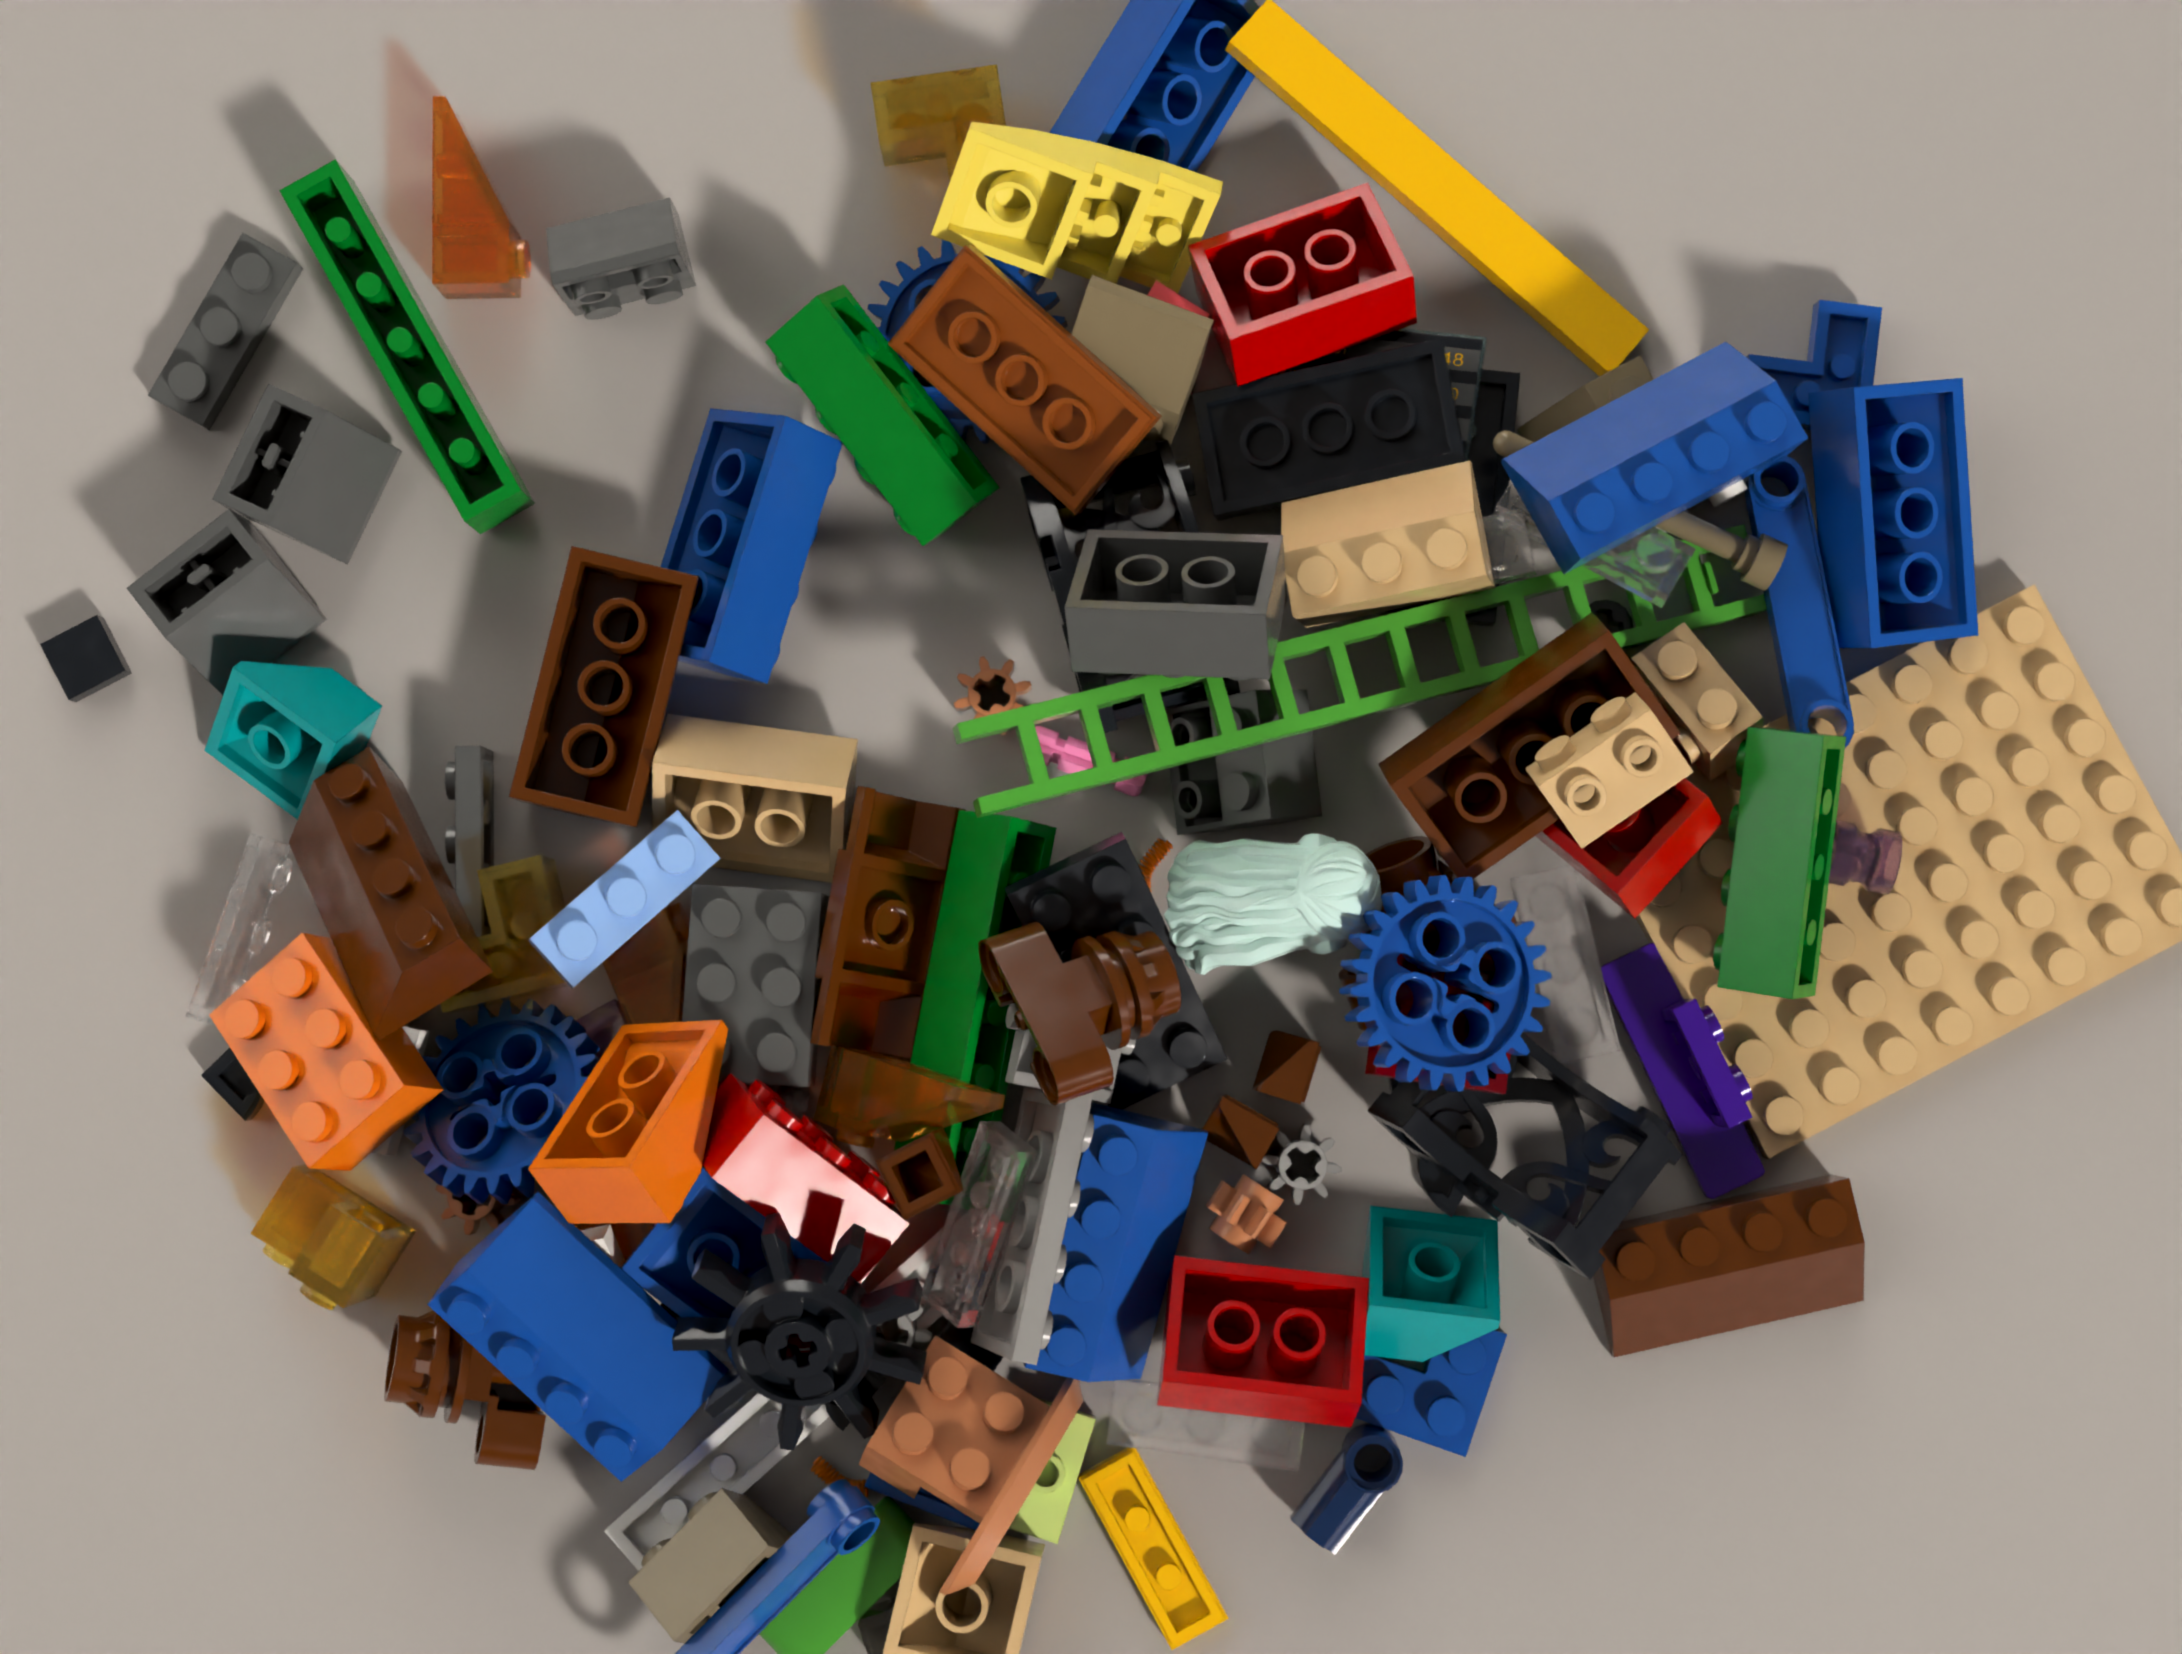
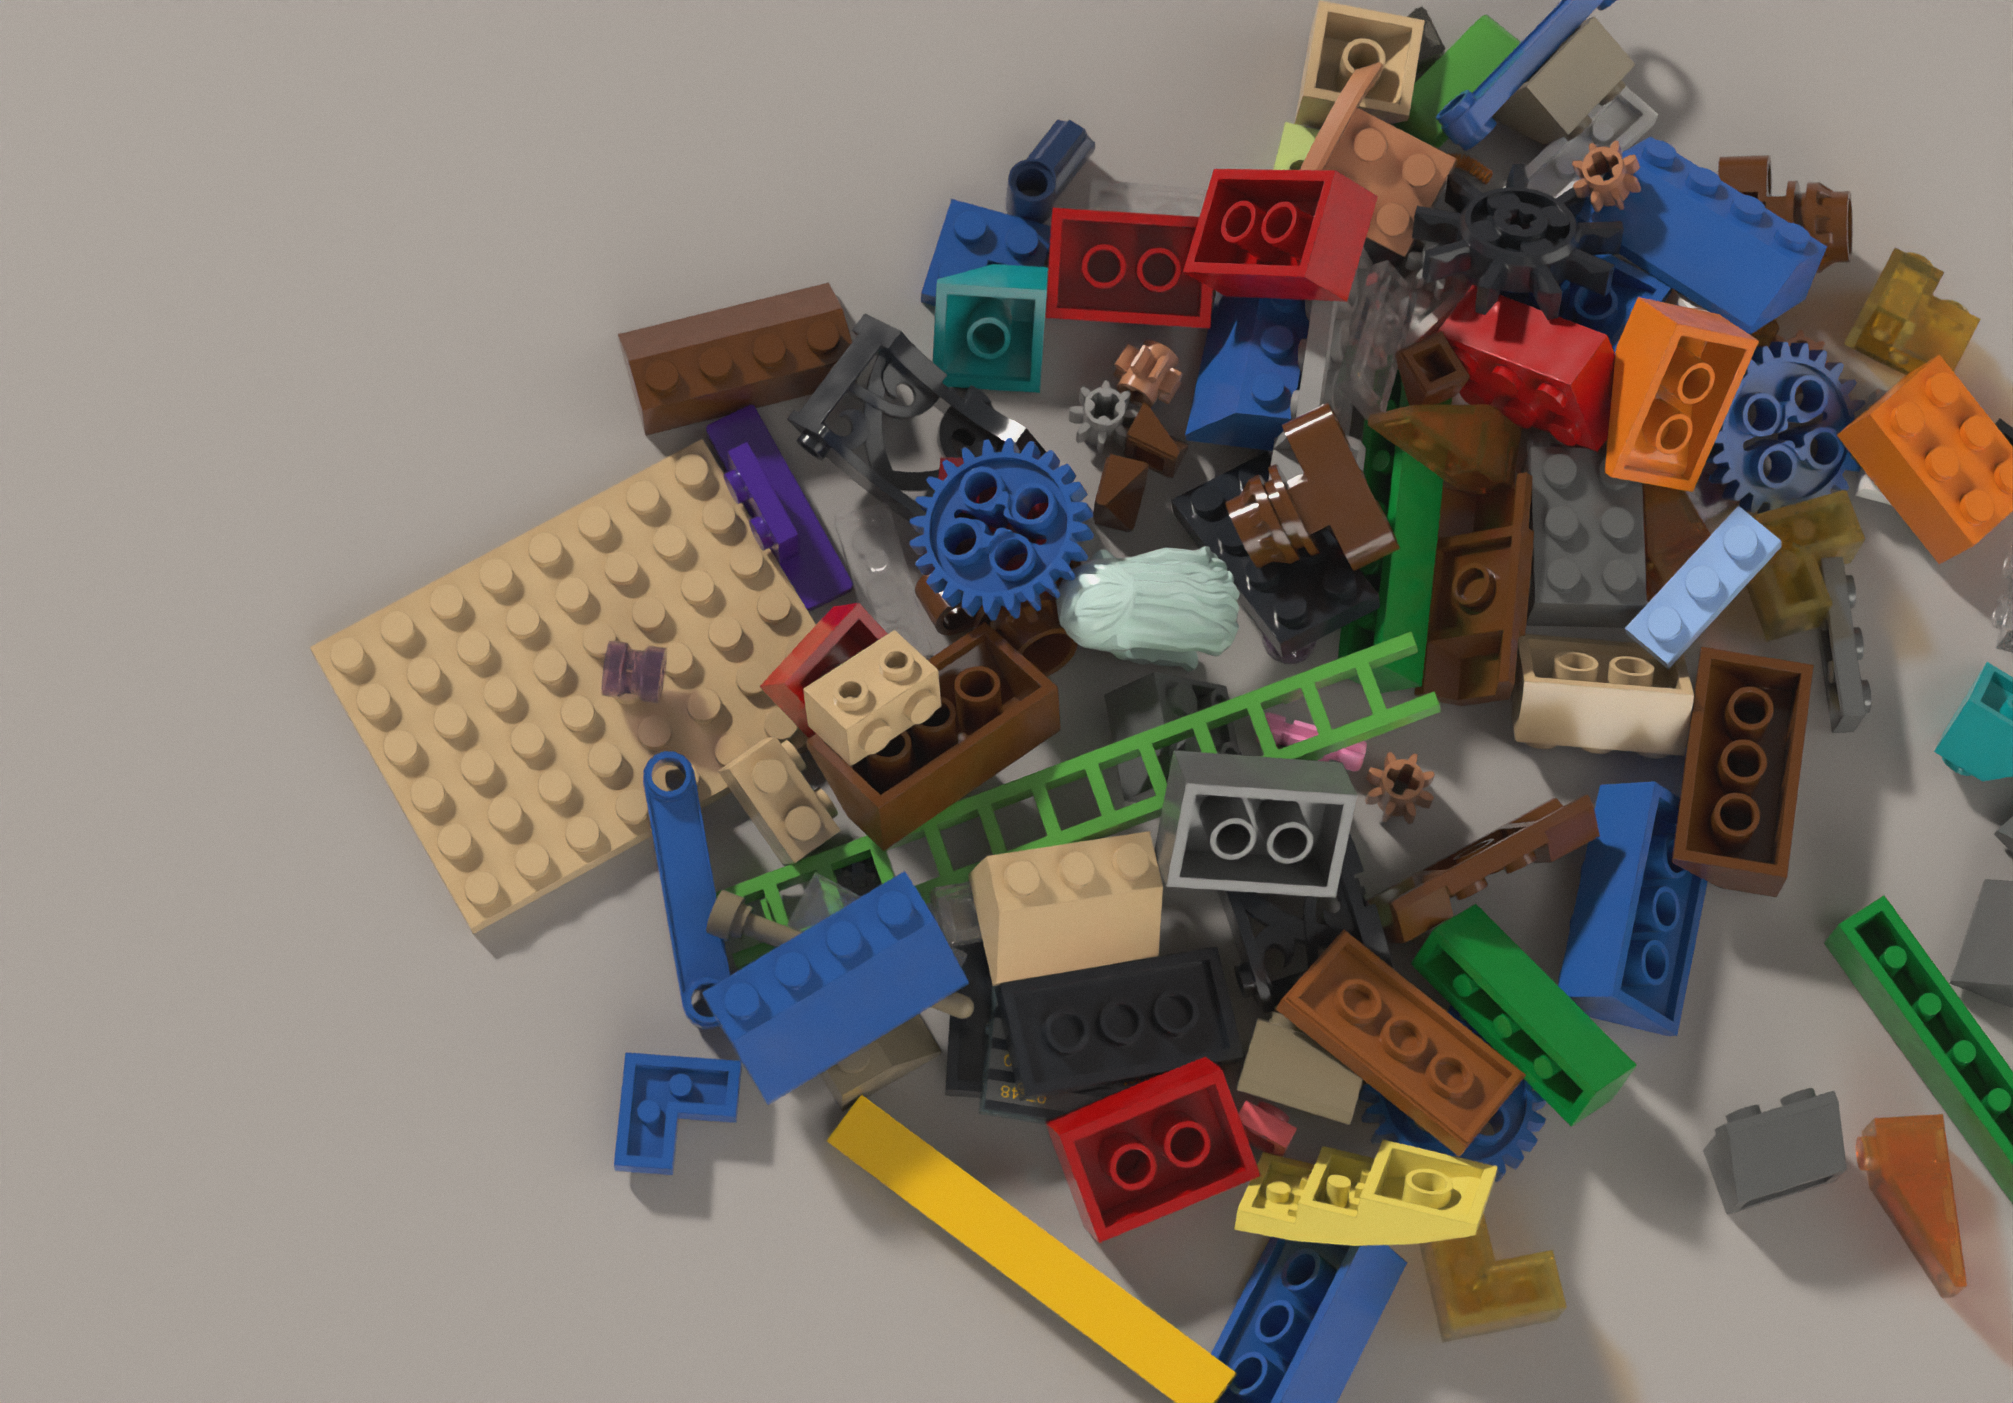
camera: 170 degrees right, 15 degrees down
(384, 894) = (1906, 586): reddish brown slope -> none
(702, 1417) = (1601, 161): none -> nougat gear
(914, 593) = (1533, 837): none -> reddish brown piece
(1094, 1333) = (1280, 234): none -> red brick
(1153, 1547) = (1199, 116): yellow tile -> none
(1154, 859) = (1252, 648): orange leg -> none
(1779, 862) = (709, 654): green brick -> none
(1894, 512) = (605, 969): blue slope -> none

